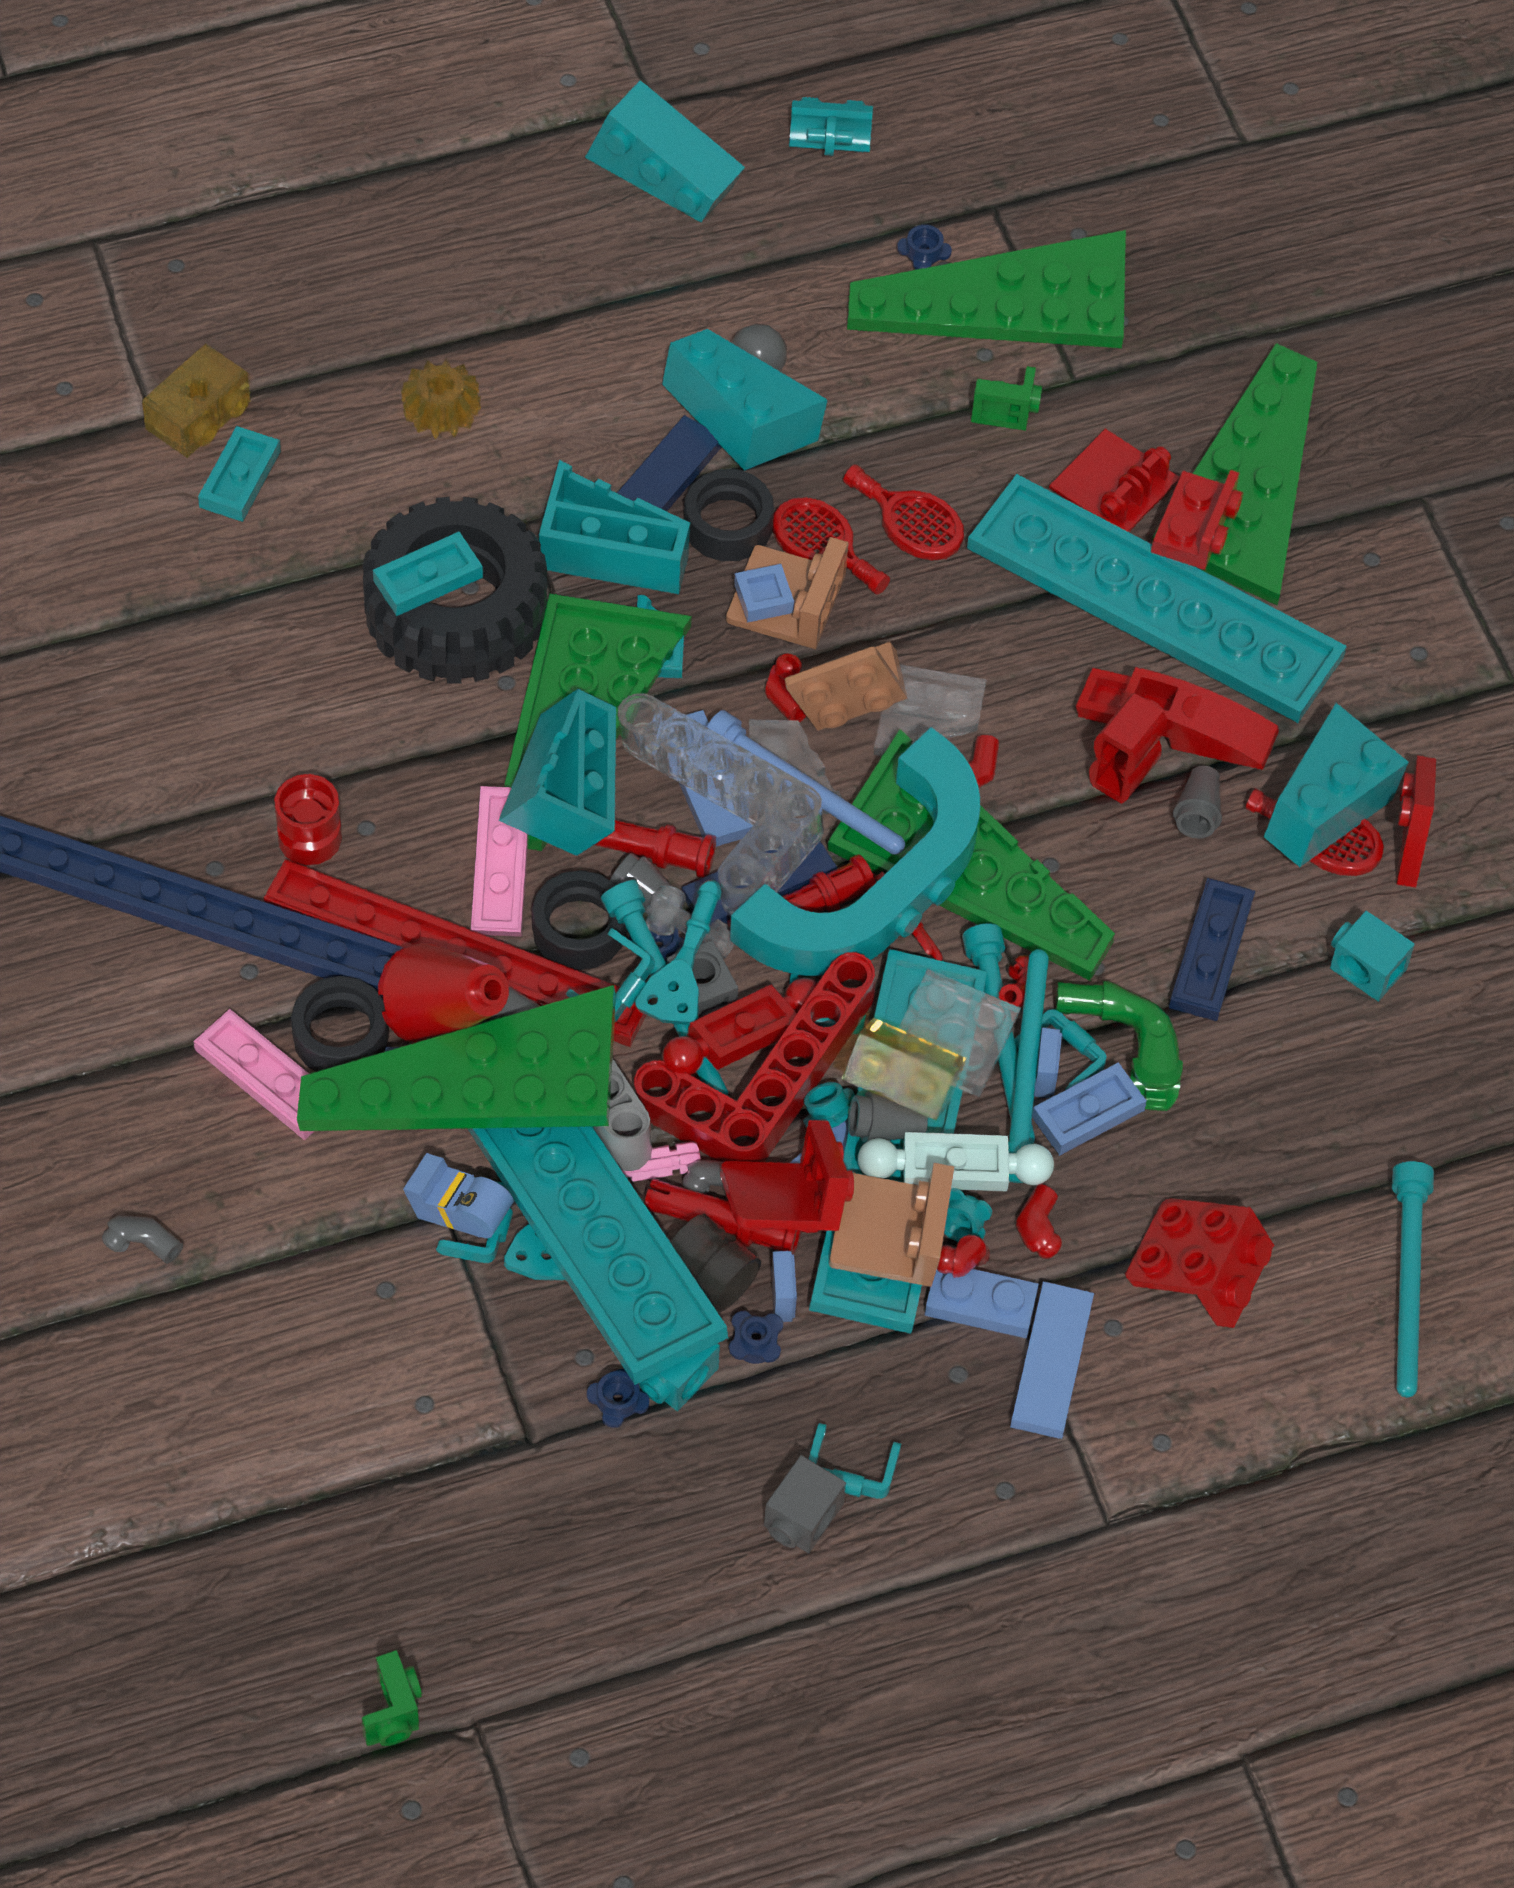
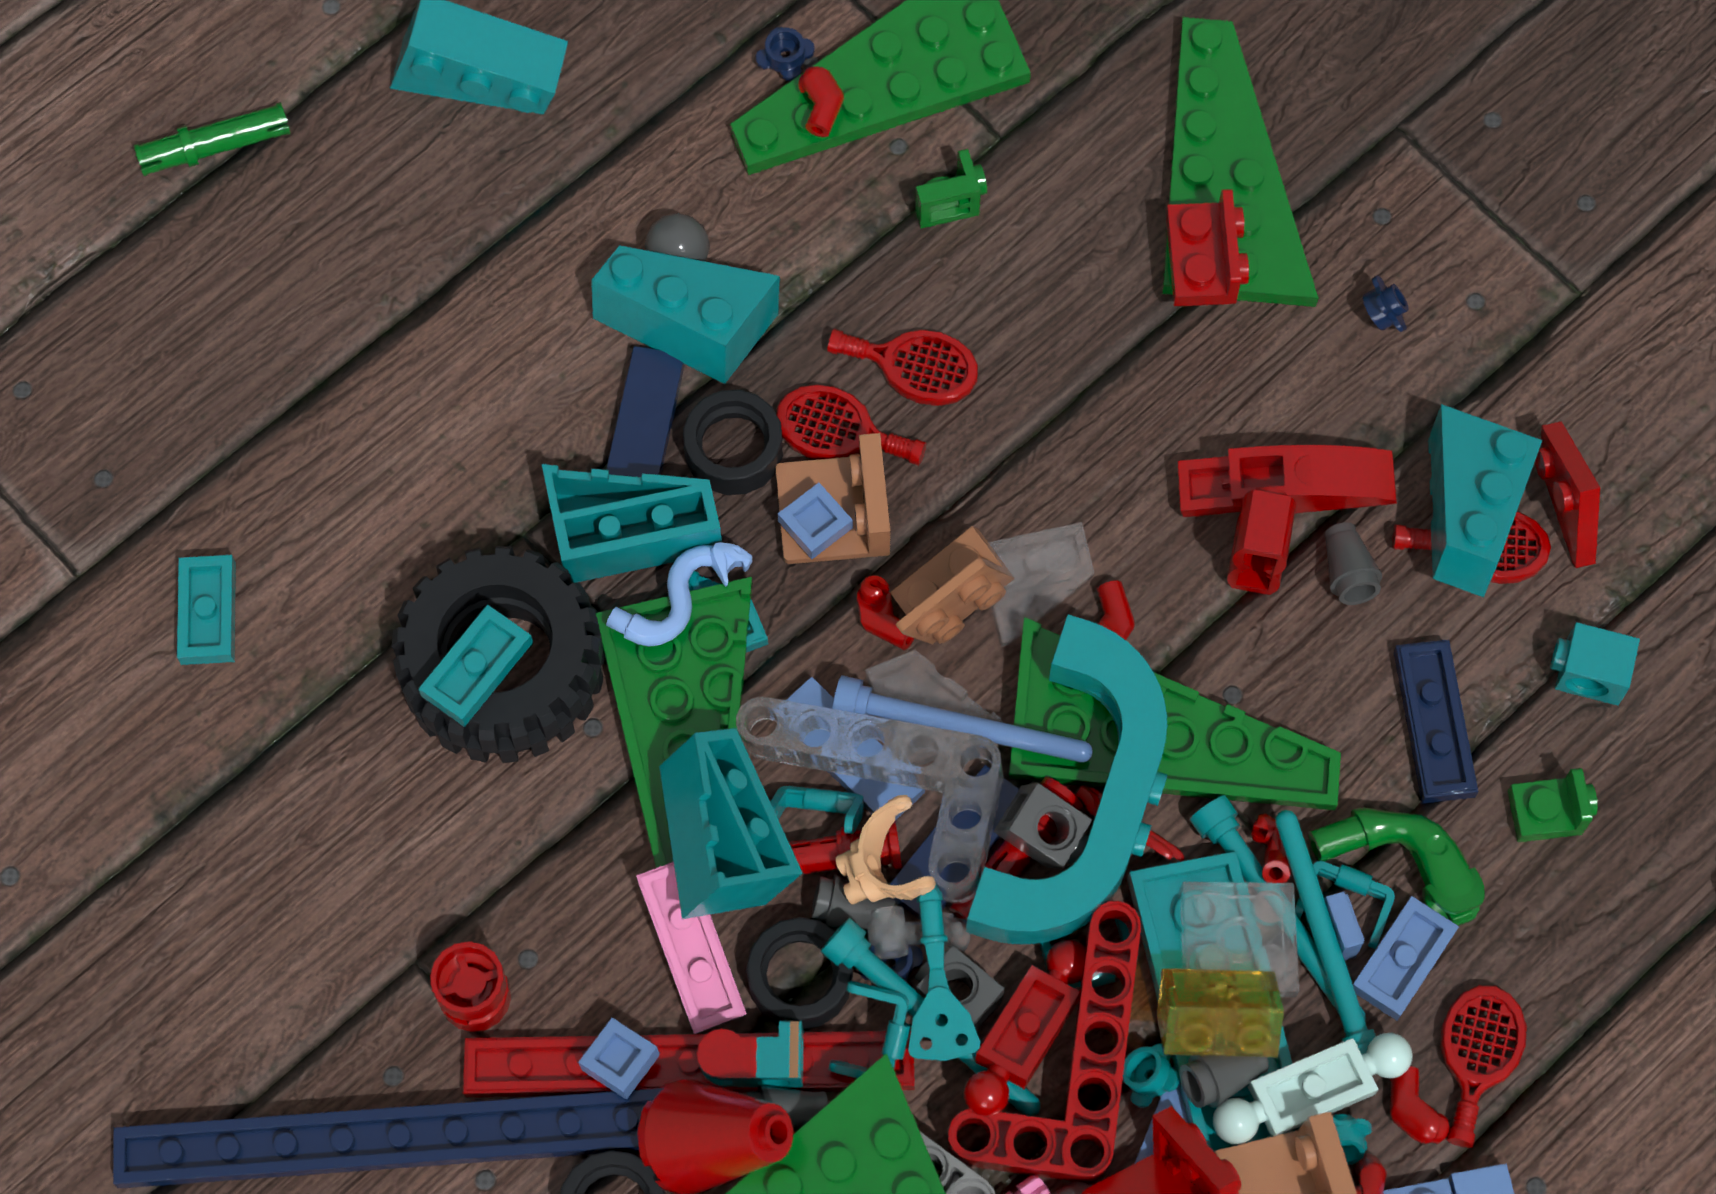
camera: 20 degrees left, 10 degrees up
(196, 401) = (116, 520): clear yellow brick -> none
(399, 915) = (619, 1058): none -> medium blue plate
(419, 138) = (211, 139): none -> green pin
(440, 398) = (372, 415): clear yellow gear -> none
(524, 964) = (754, 1061): none -> leg
(671, 848) = (863, 861): none -> light nougat helmet
(672, 589) = (646, 632): none -> light blue animal
(680, 815) = (821, 800): none -> teal piece
(832, 857) = (1021, 821): none -> dark grey brick
(937, 288) = (826, 97): none -> red arm
(1070, 1257) = (1467, 1110): none -> red piece
(1116, 480) = (1098, 238): red hinge -> none
(1157, 598) = (1200, 353): teal plate -> none
(1205, 1253) = (1590, 1074): red bracket -> none
(1276, 1050) = (1552, 807): none -> green bracket
(1335, 619) = (1386, 305): none -> dark blue plate

